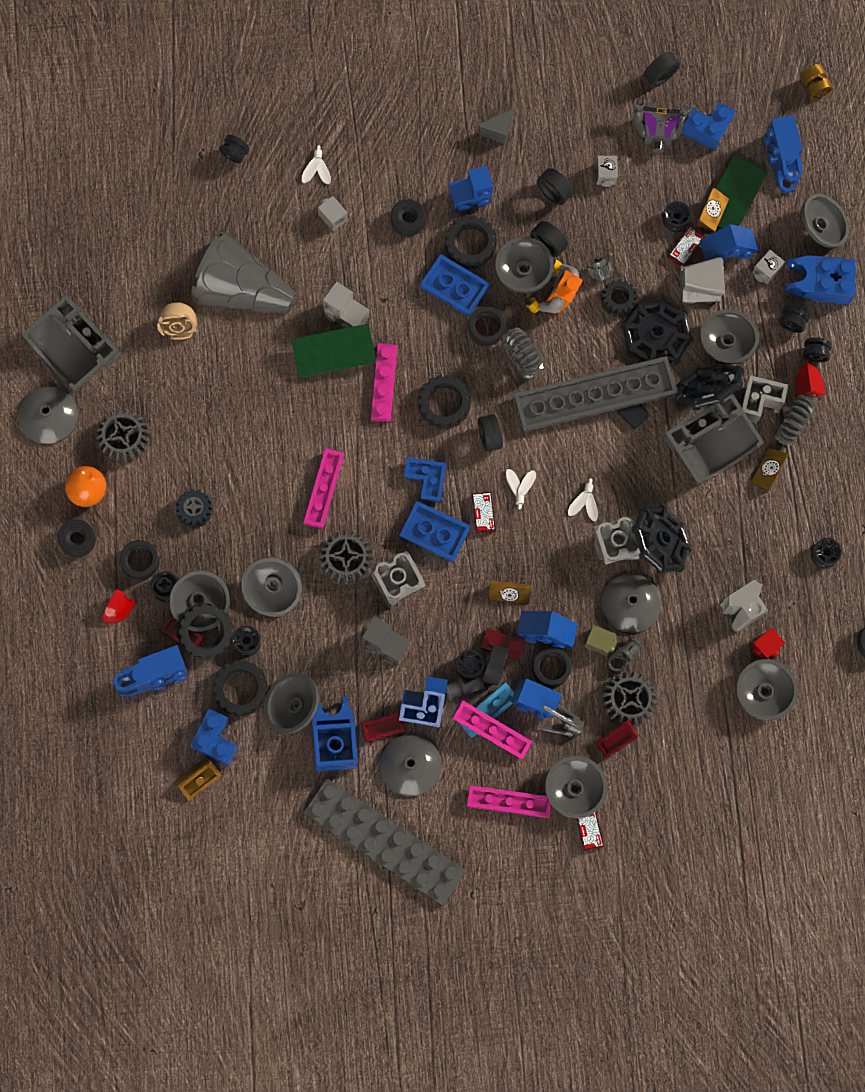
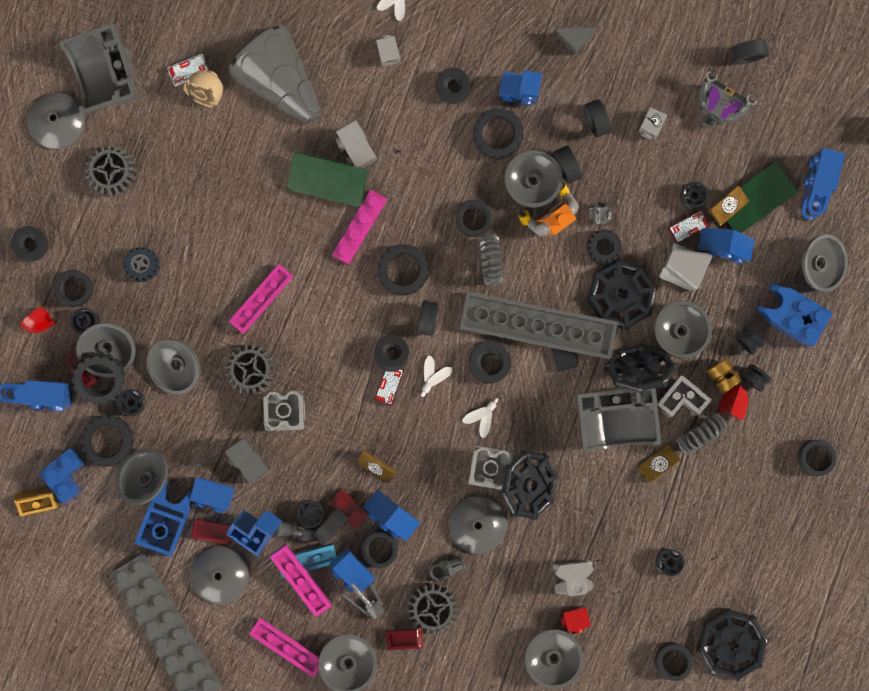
camera: 25 degrees right, 10 degrees up
(85, 486) = (56, 202): orange piece -> none
(148, 316) = (182, 71): none -> tile
(367, 690) = (212, 494): none -> blue brick
(431, 474) = (359, 328): blue plate -> none
(435, 531) = (338, 382): blue plate -> none
(454, 285) = (464, 167): blue plate -> none
(476, 471) = (387, 363): none -> black tyre
(577, 437) = (504, 362): none -> black tyre
(600, 641) = (433, 547): olive brick -> none
(708, 129) = (763, 127): blue brick -> none
(768, 267) = (751, 281): light grey brick -> none
(787, 361) = (724, 368): none -> pearl gold wheel

